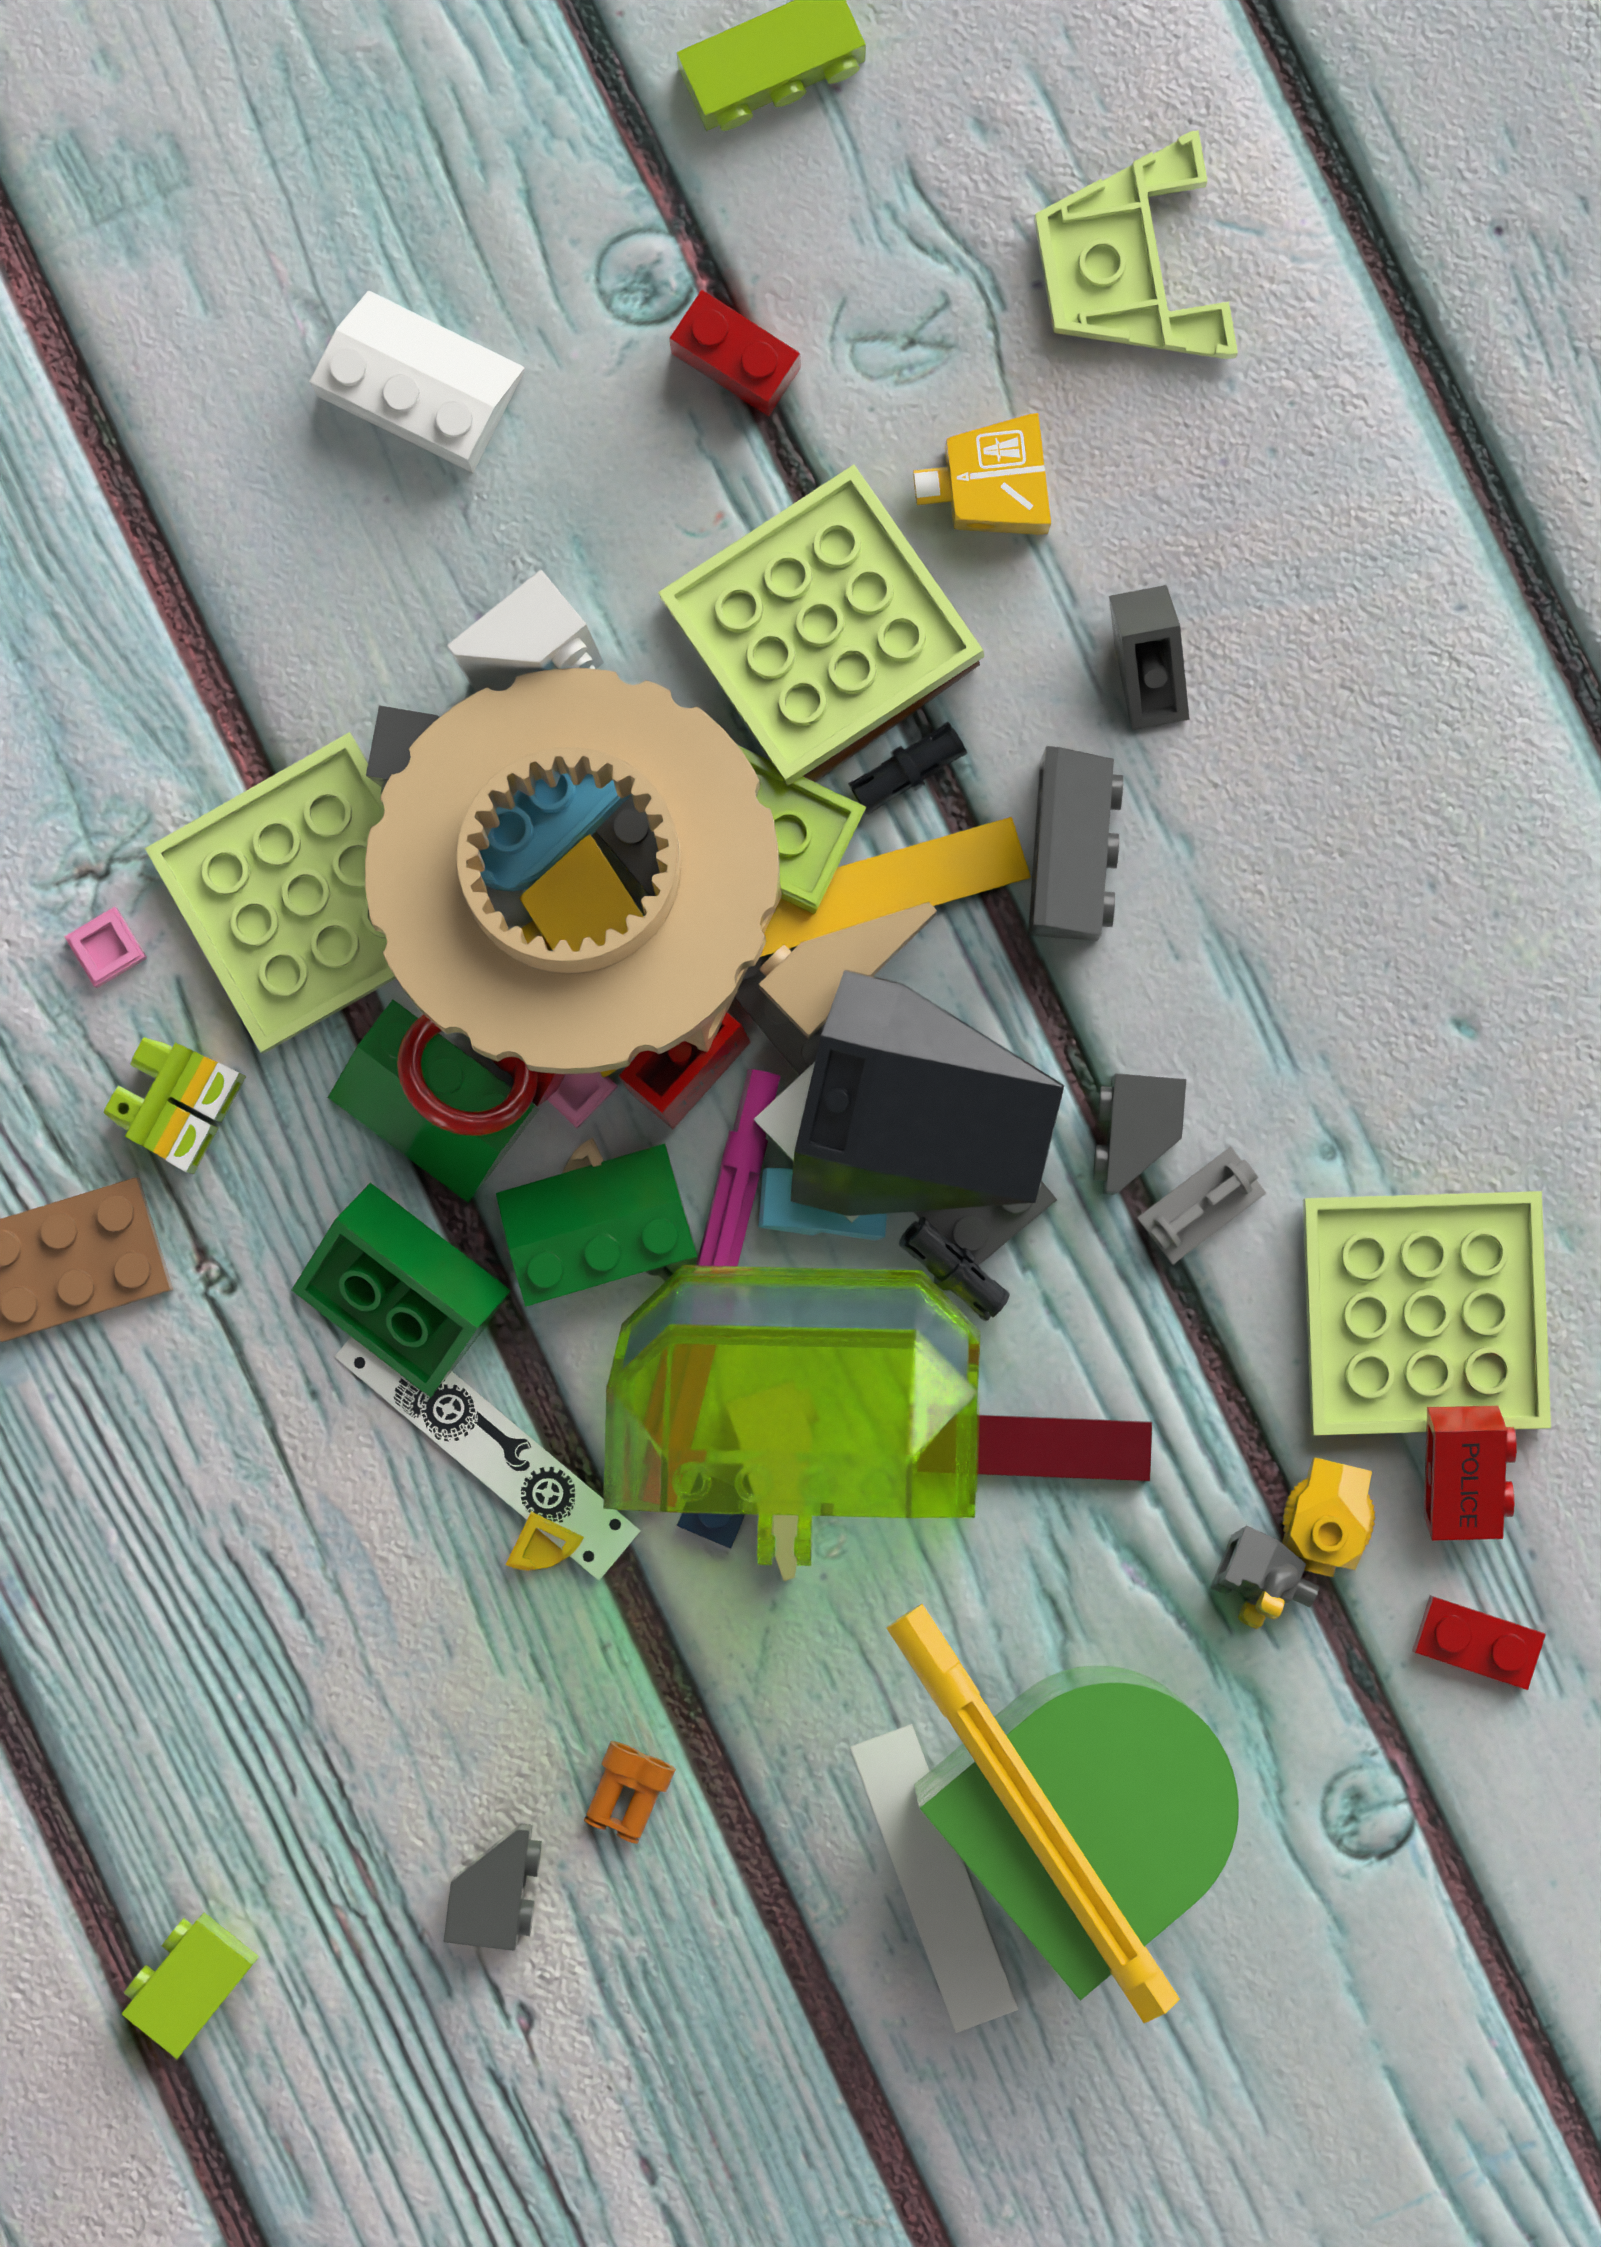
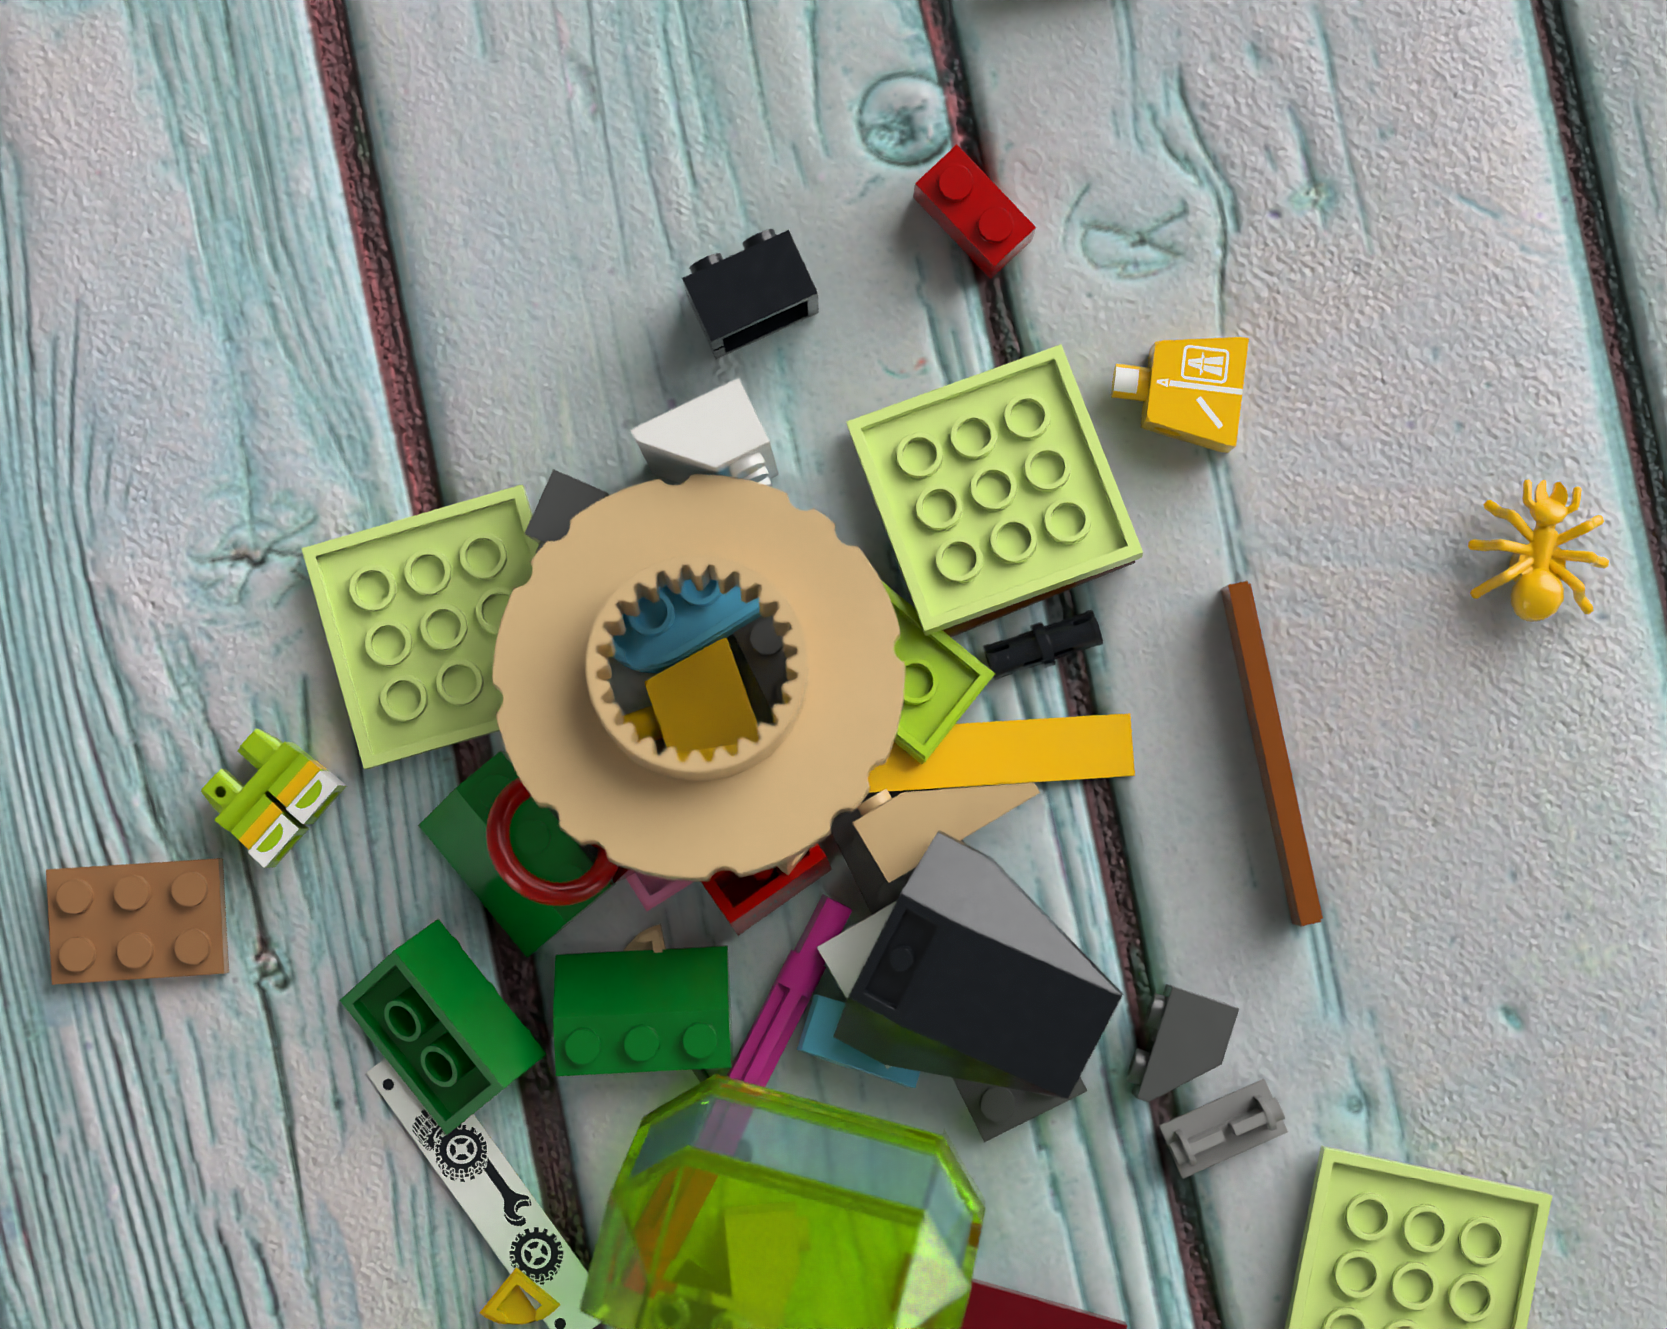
camera: 10 degrees right, 0 degrees up
(105, 947) = (243, 632): bright pink tile -> none
(416, 380) = (666, 165): white slope -> none
(532, 486) = (750, 292): none -> black piece
(954, 1269) = (973, 1135): black pin -> none
(1074, 845) = (1183, 757): dark grey slope -> none
(1106, 263) = (1345, 210): yellowish green wing -> none
(1150, 656) = (1299, 593): dark grey slope -> none
(1160, 820) = (1271, 754): none -> dark orange tile
(1382, 566) = (1540, 563): none -> yellow animal

